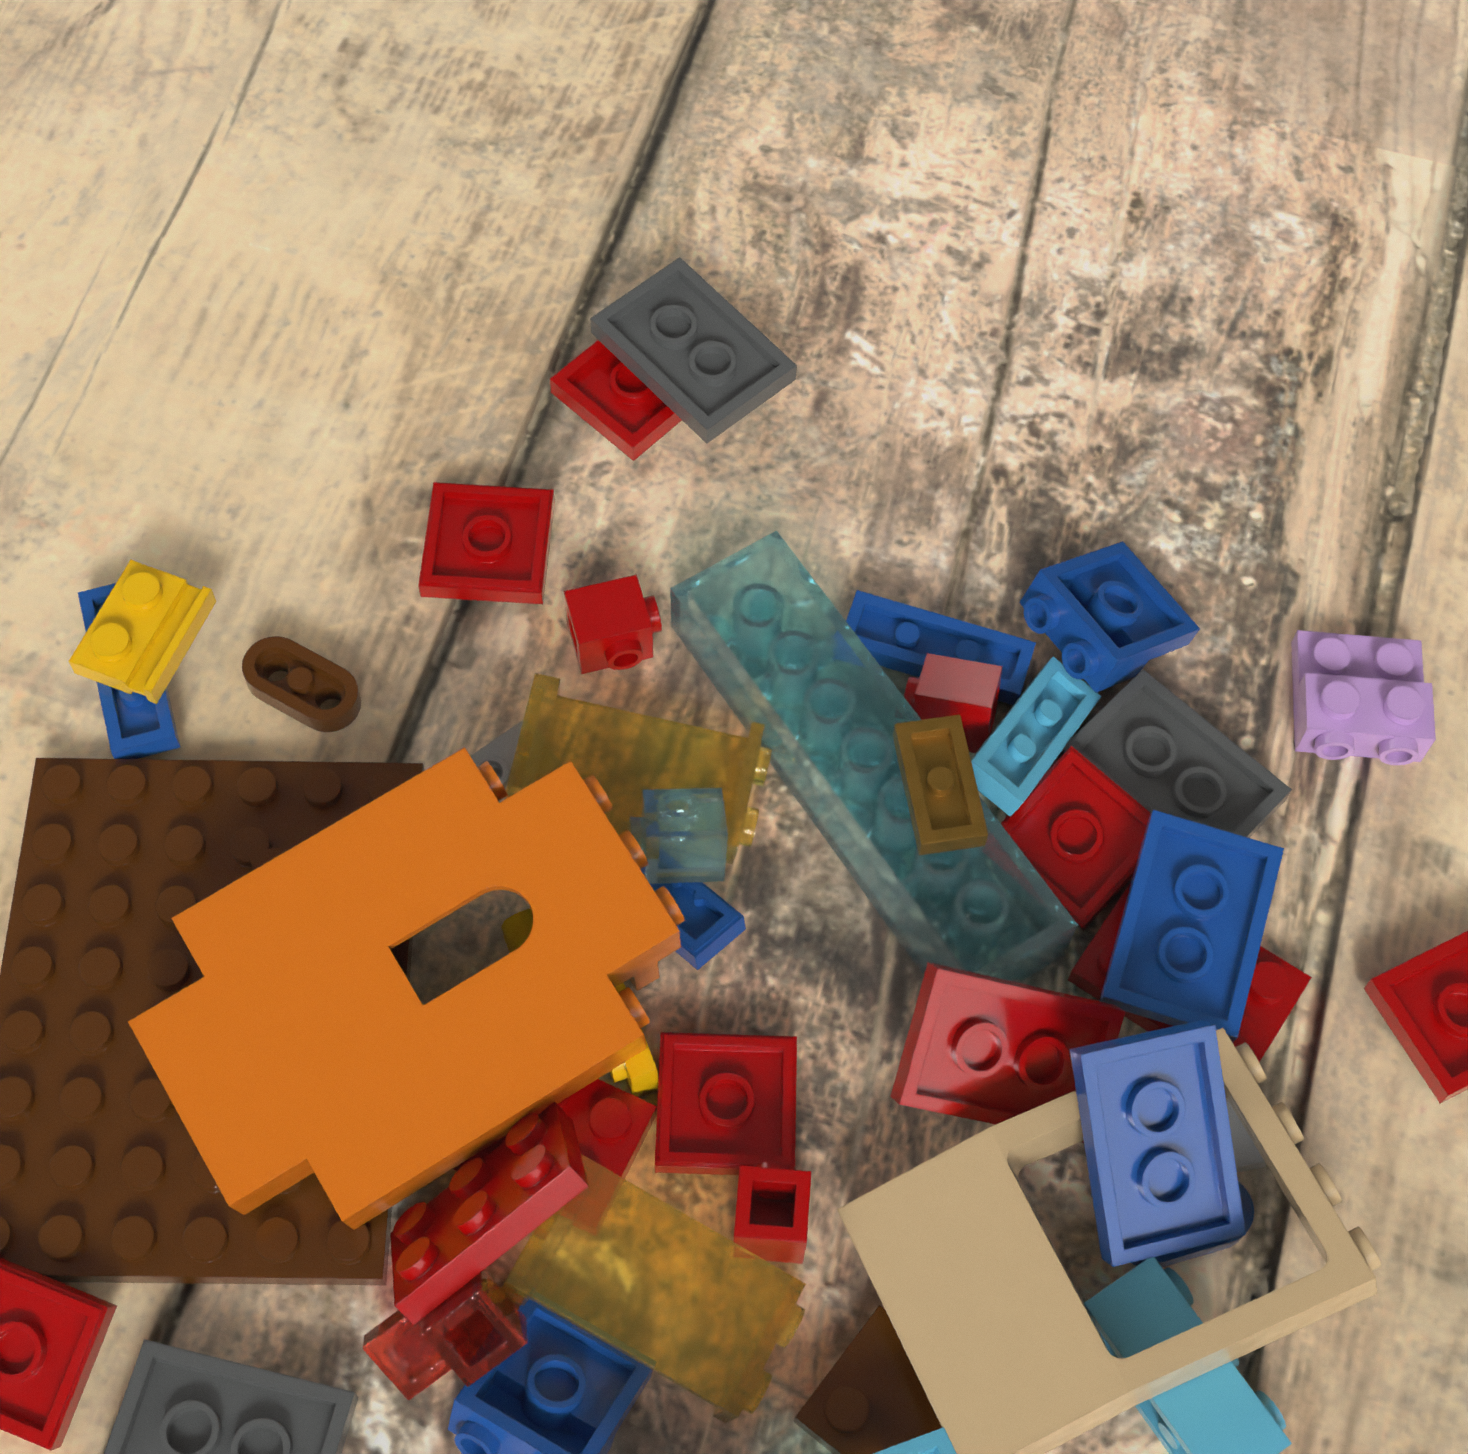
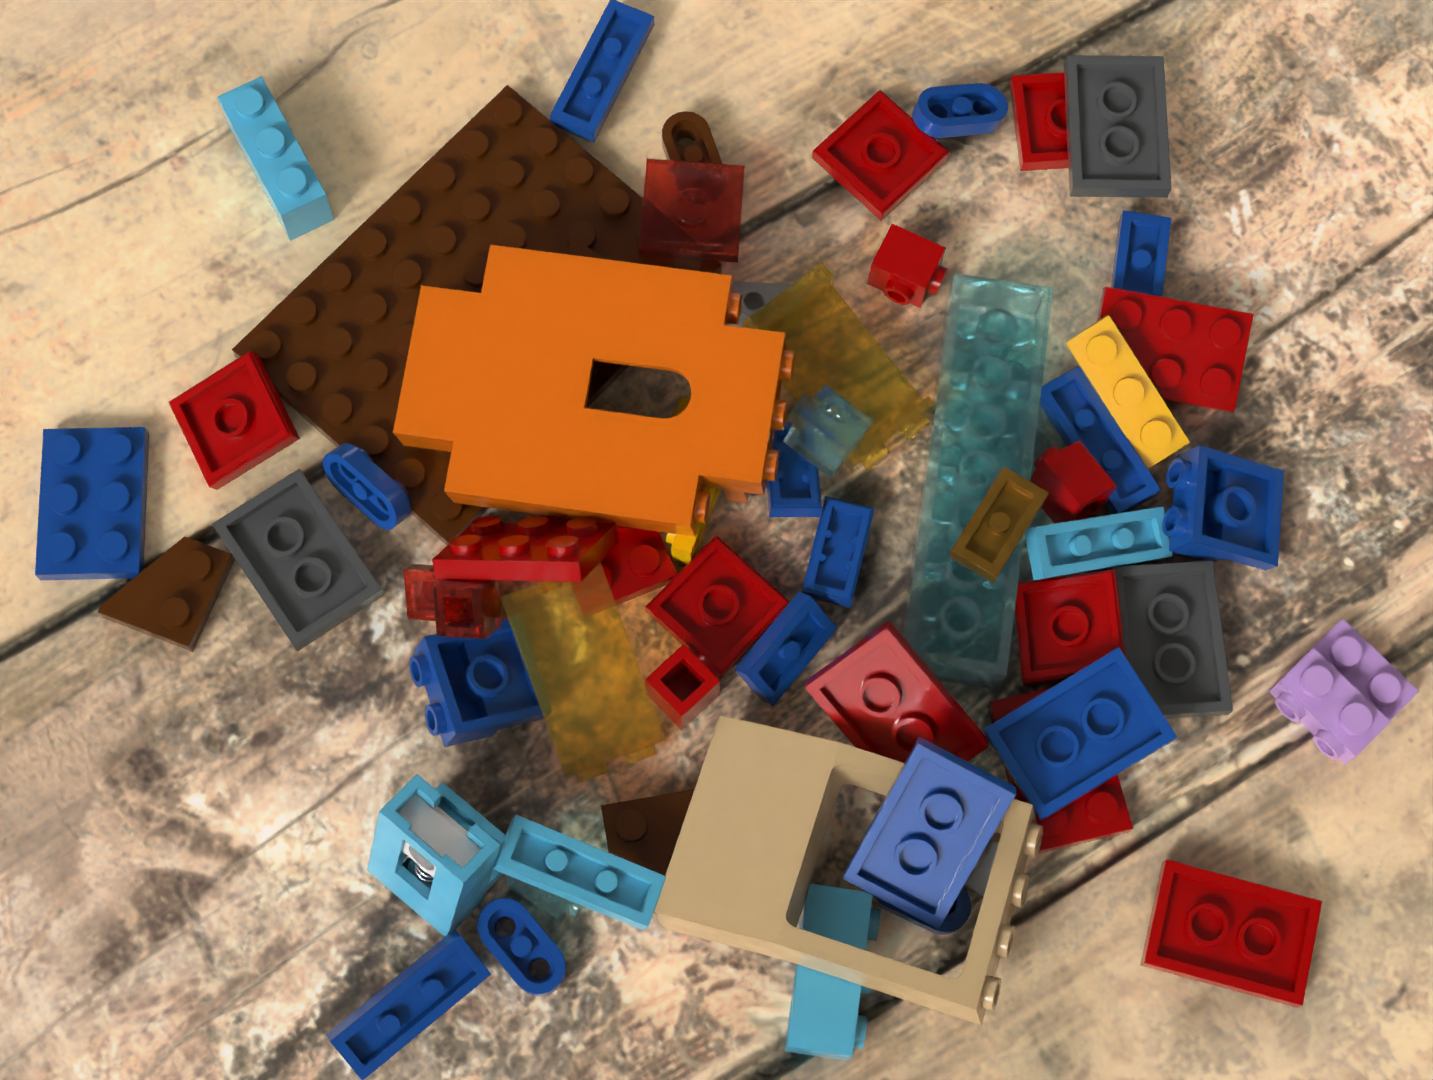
camera: 40 degrees right, 10 degrees up
(142, 631) = (626, 53): yellow plate -> none
(239, 1294) = (367, 486): none -> blue plate
(348, 732) = (691, 210): none -> clear red tile
(528, 445) = (954, 110): none -> blue plate
(794, 950) = (837, 551): none -> blue plate
(821, 458) = (1141, 253): none -> blue plate
(833, 1087) = (785, 648): none -> blue plate
(921, 513) = (1183, 346): none -> red plate
(922, 575) = (1127, 391): none -> yellow plate

